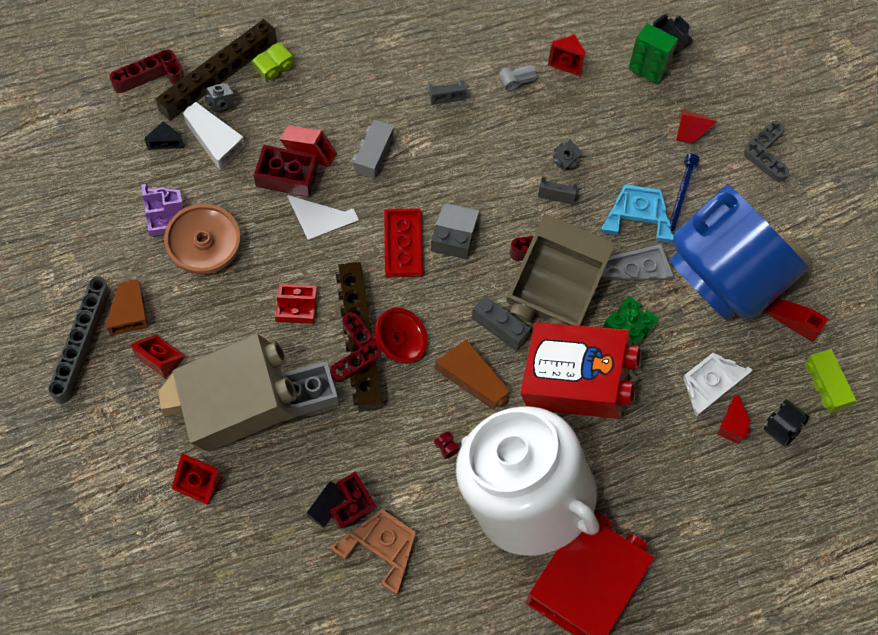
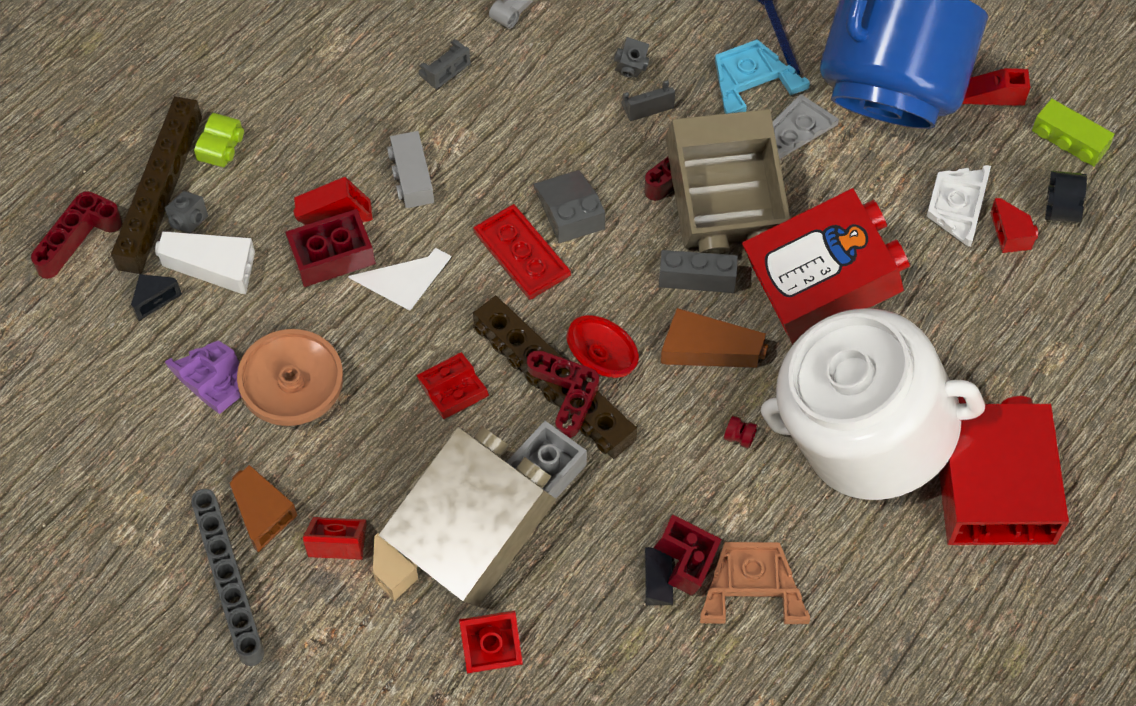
camera: 30 degrees left, 5 degrees down
(631, 318) = (829, 182): green brick -> none

